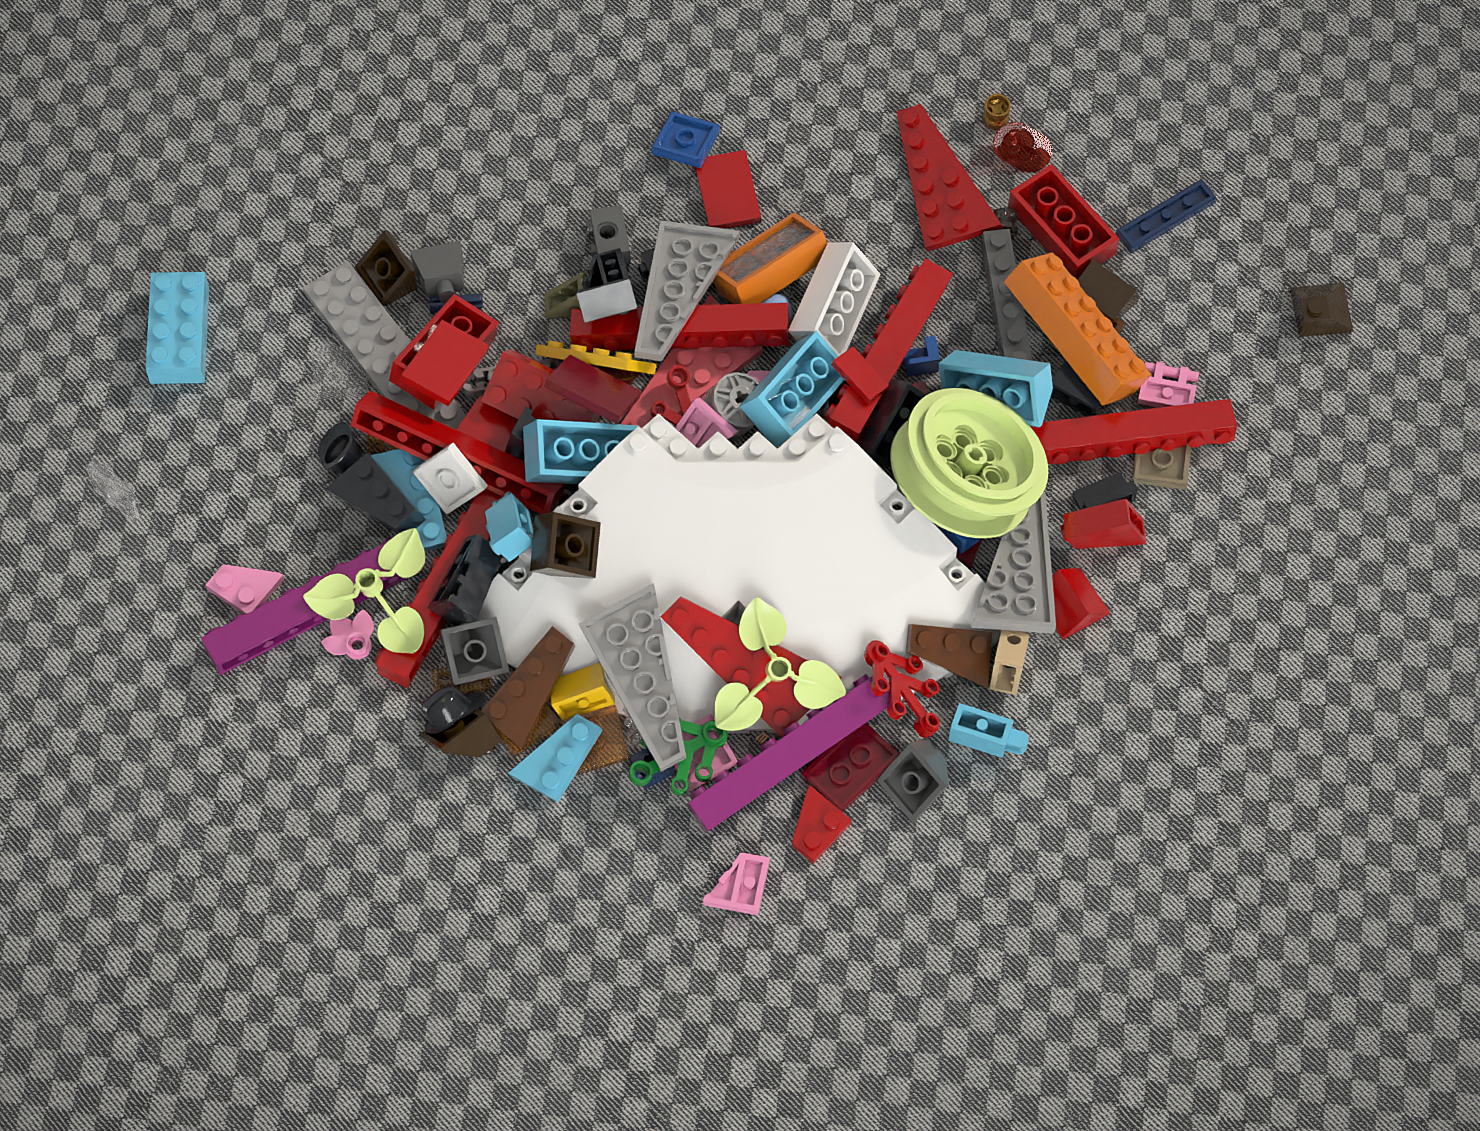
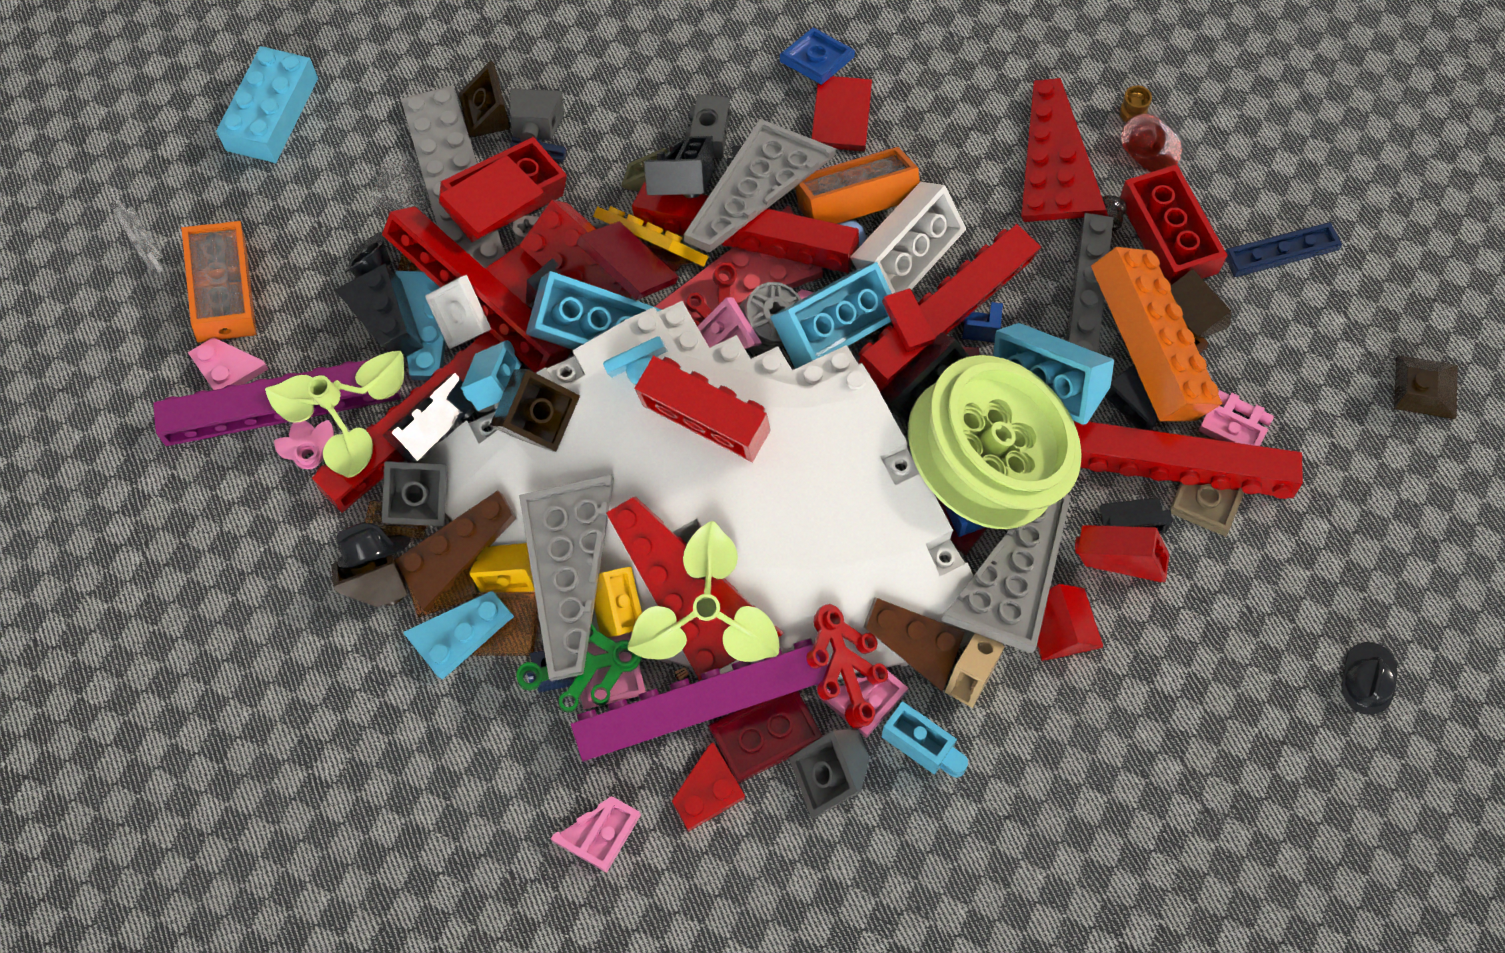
camera: 20 degrees right, 0 degrees up
(208, 510) = (218, 281): none -> brick
(648, 484) = (635, 359): none -> medium azure tile
(692, 692) = (616, 602): none -> yellow panel
(719, 503) = (703, 408): none -> red brick
(940, 705) = (880, 696): none -> bright pink wing
(1335, 575) = (1369, 678): none -> black piece

